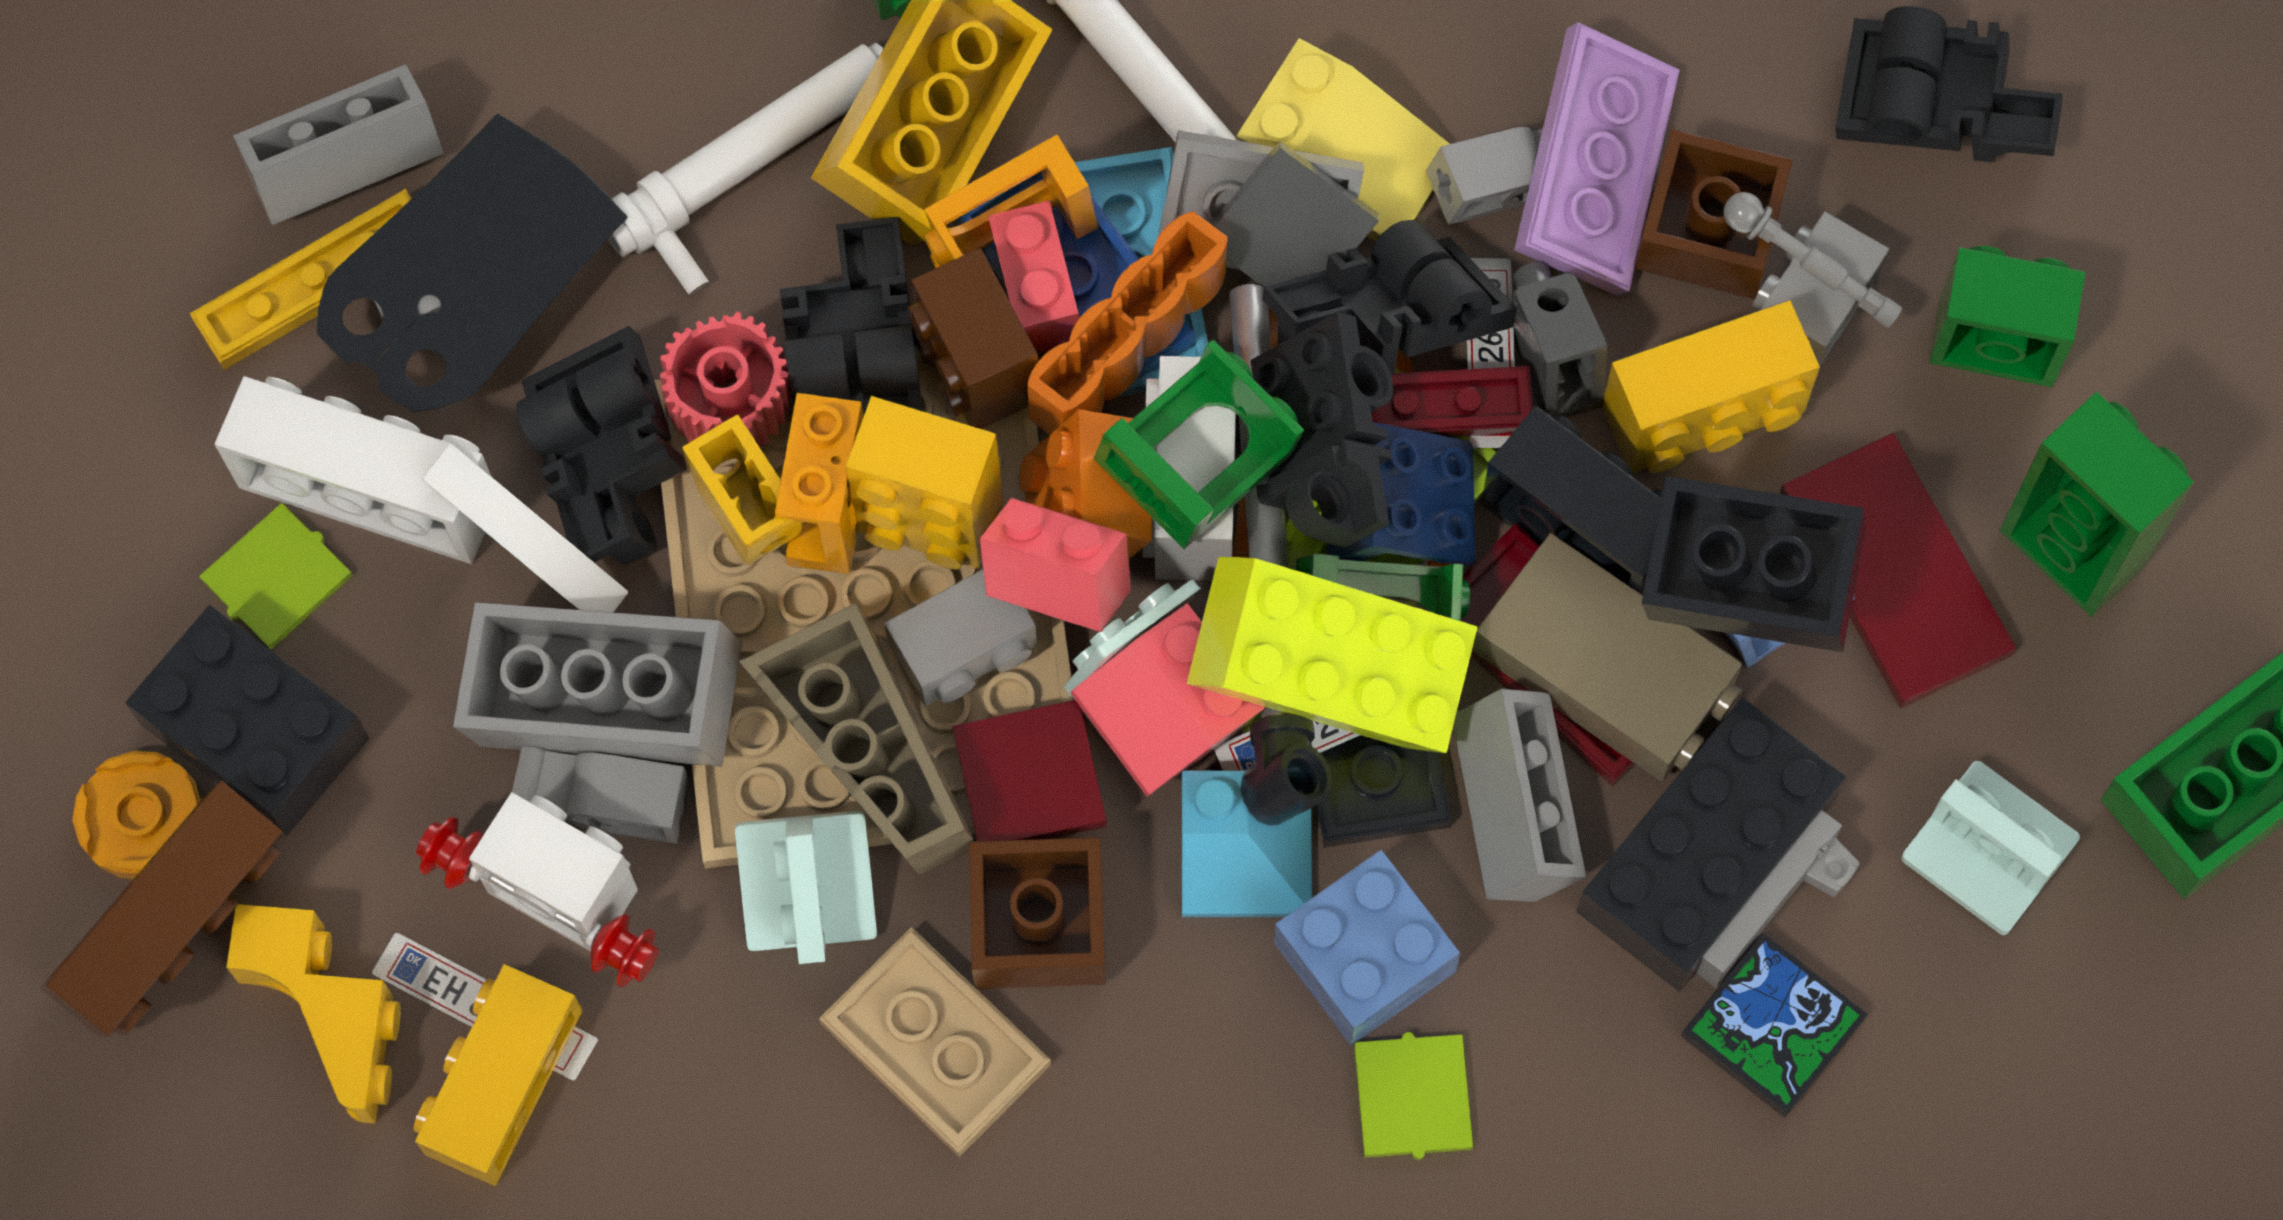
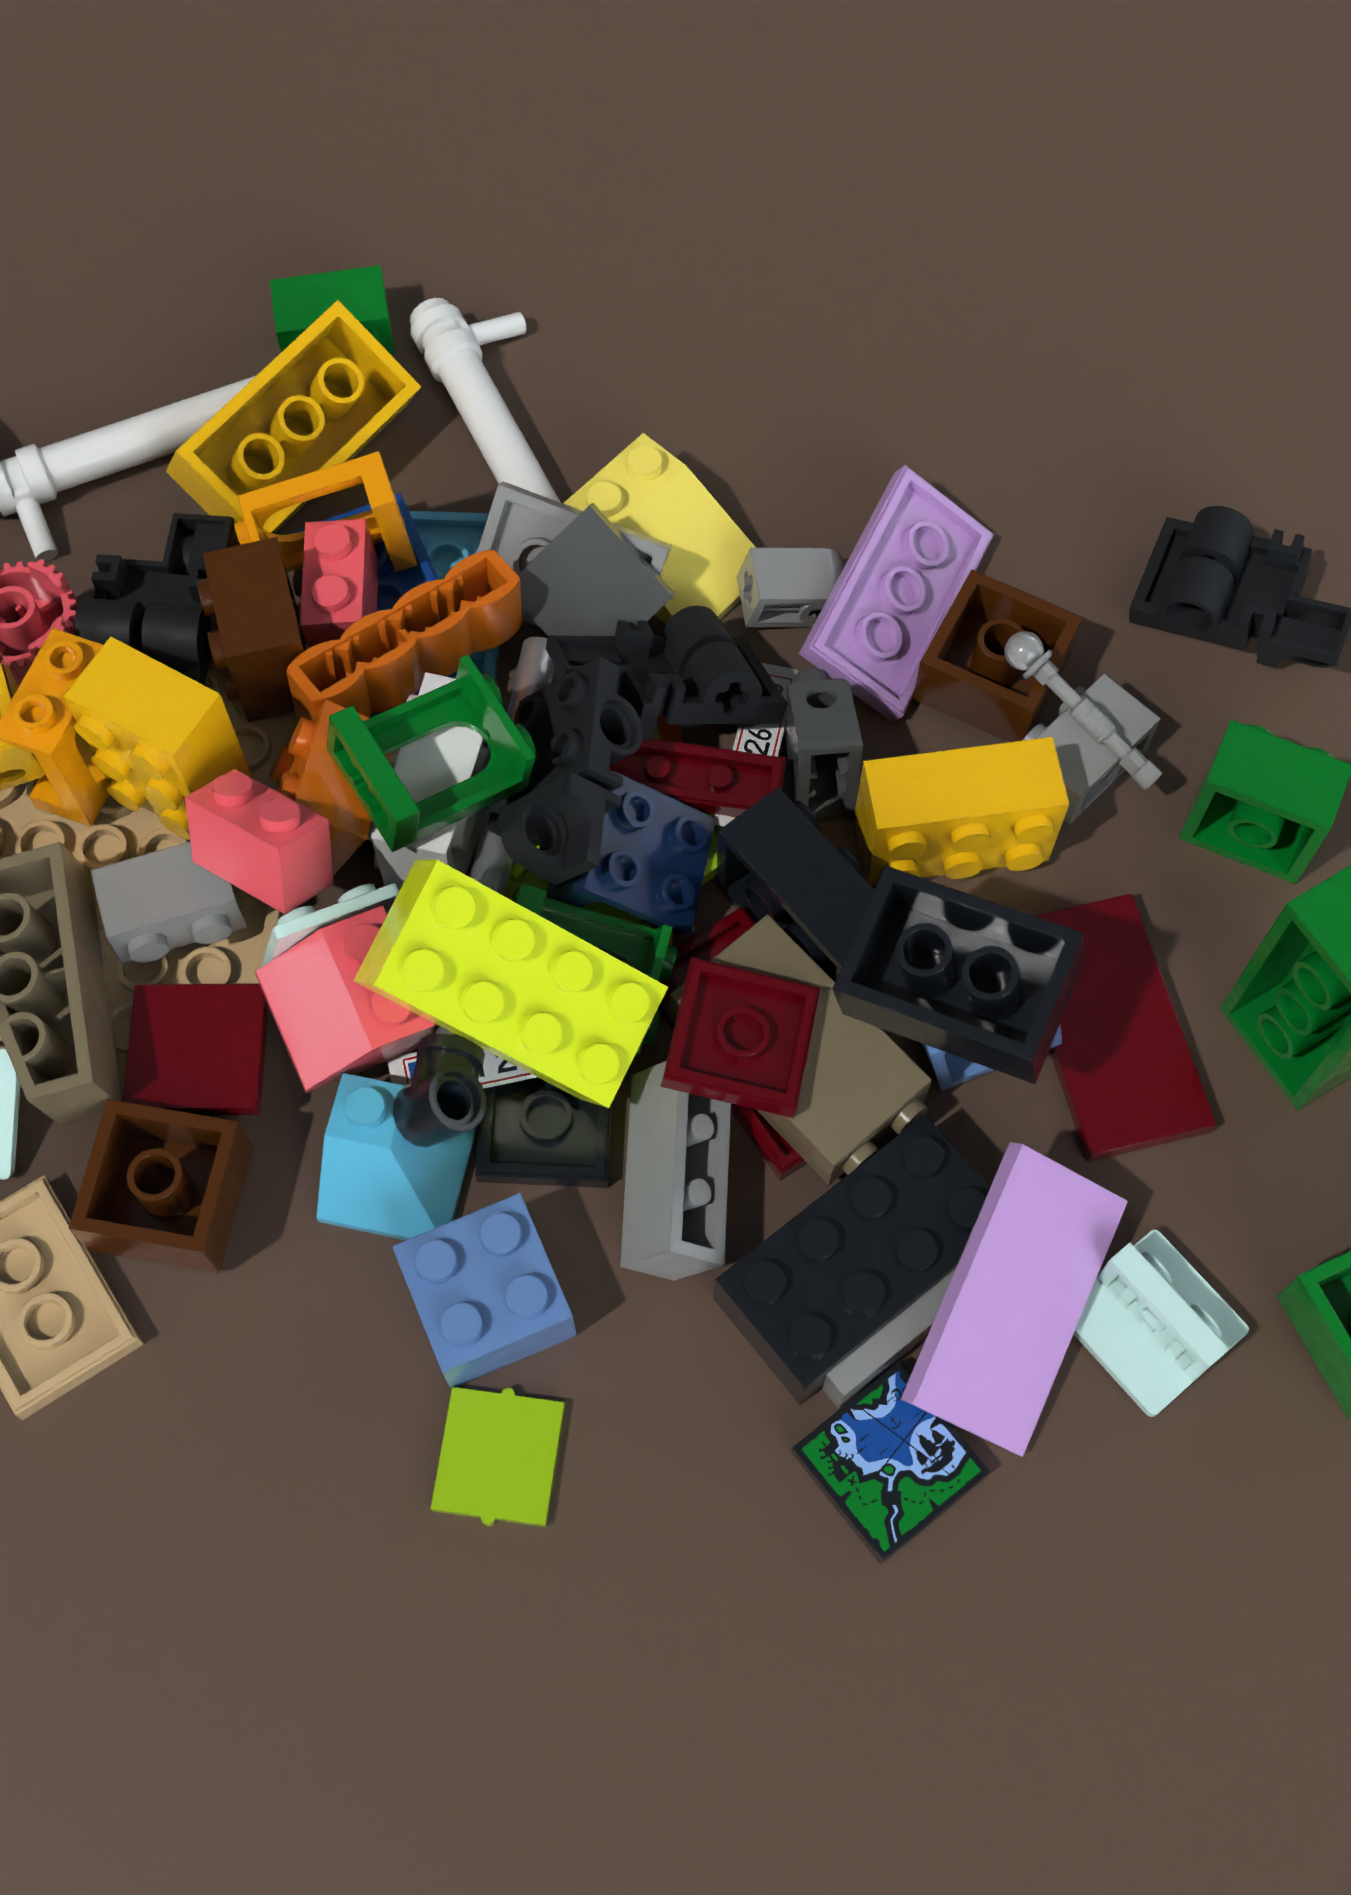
camera: 10 degrees right, 5 degrees down
(1556, 660) = (741, 1037): none -> dark red tile
(1861, 852) = (1015, 1299): none -> lavender tile

